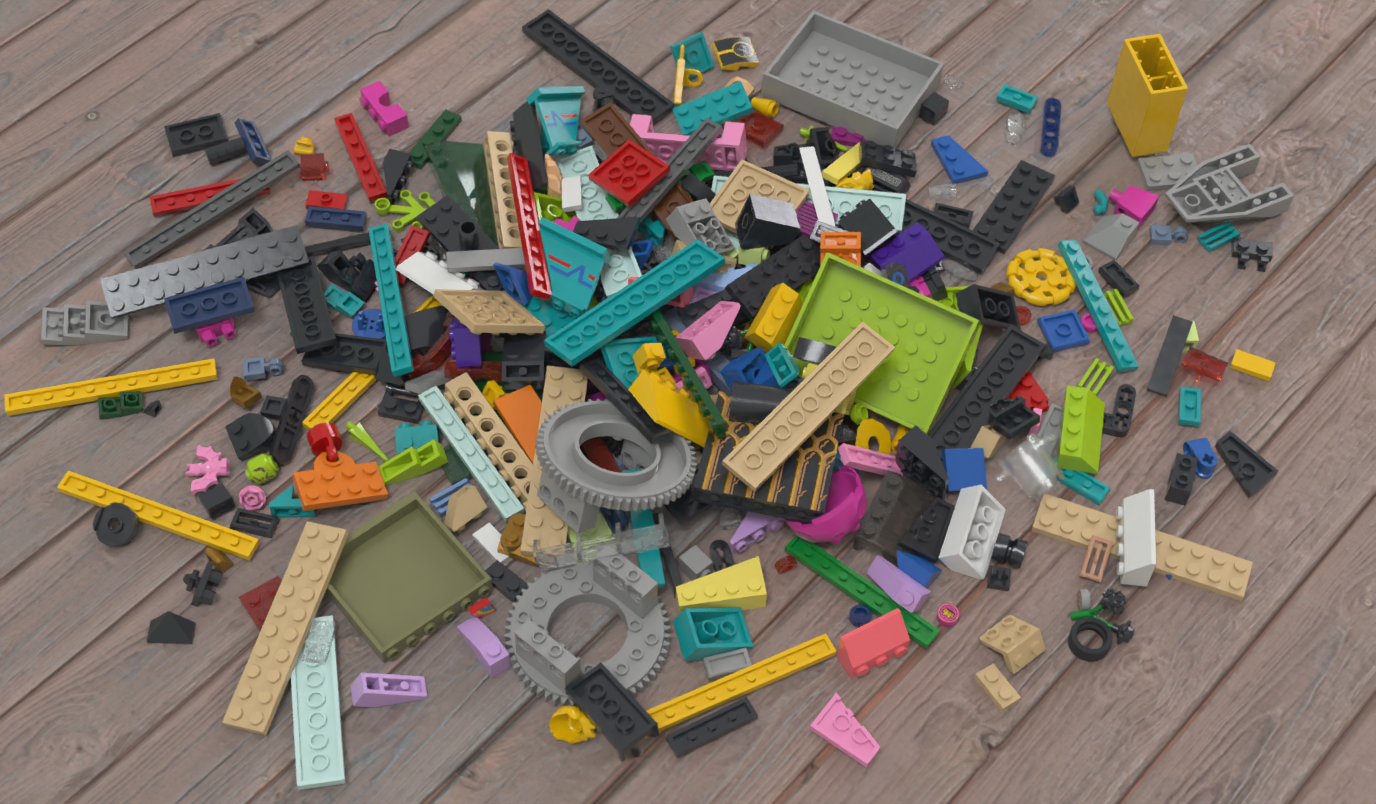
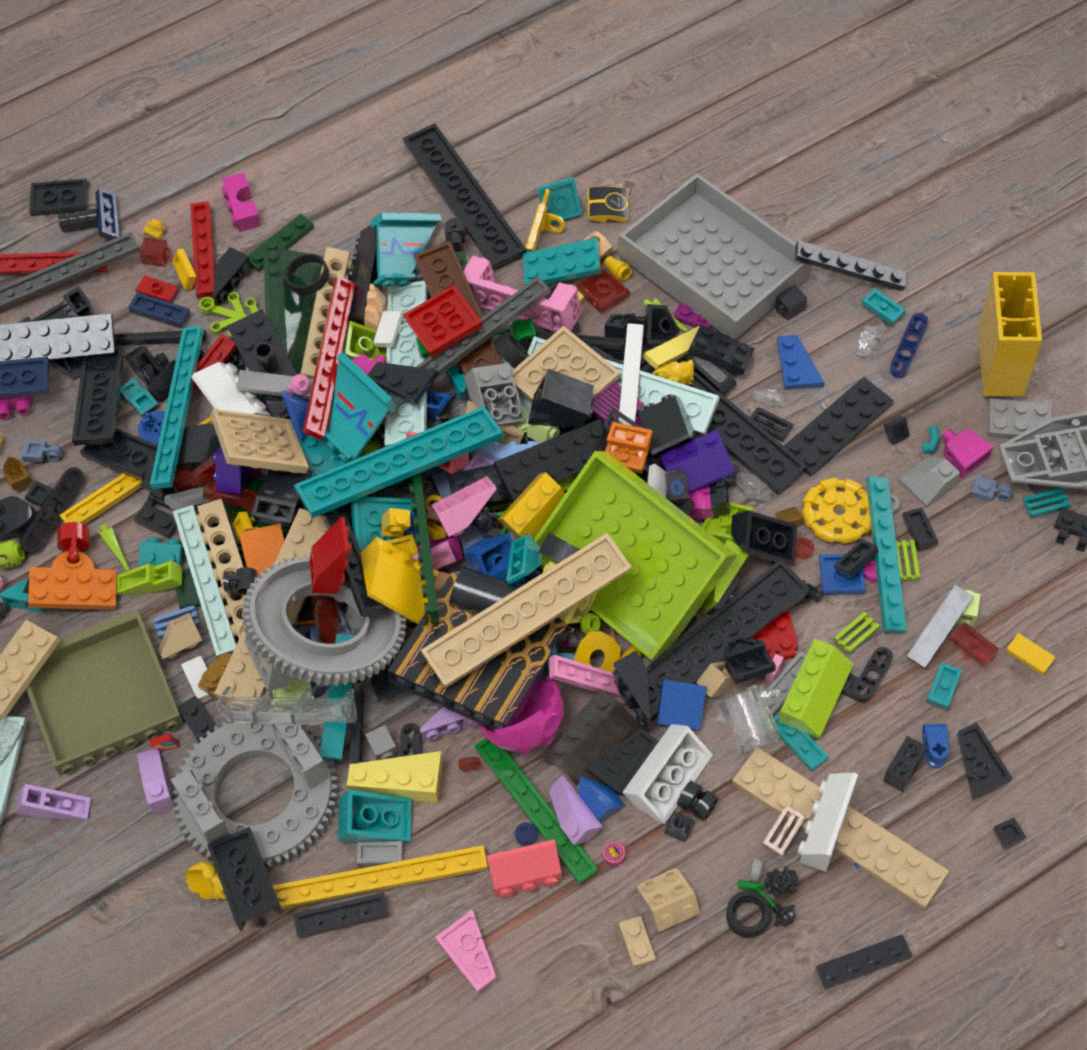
camera: 20 degrees right, 5 degrees up
(348, 177) = (184, 269): none -> yellow tile
(484, 170) = (299, 261): none -> black tyre
(509, 254) = (299, 384): none -> bright pink plate
(515, 441) = (240, 581): none -> black piece
(608, 395) = (330, 559): none -> red slope
(977, 66) = (850, 265): none -> plate
(1074, 312) = (856, 558): none -> black plate
(1206, 657) = (863, 961): none -> black plate
(1292, 518) = (1009, 833): none -> black plate

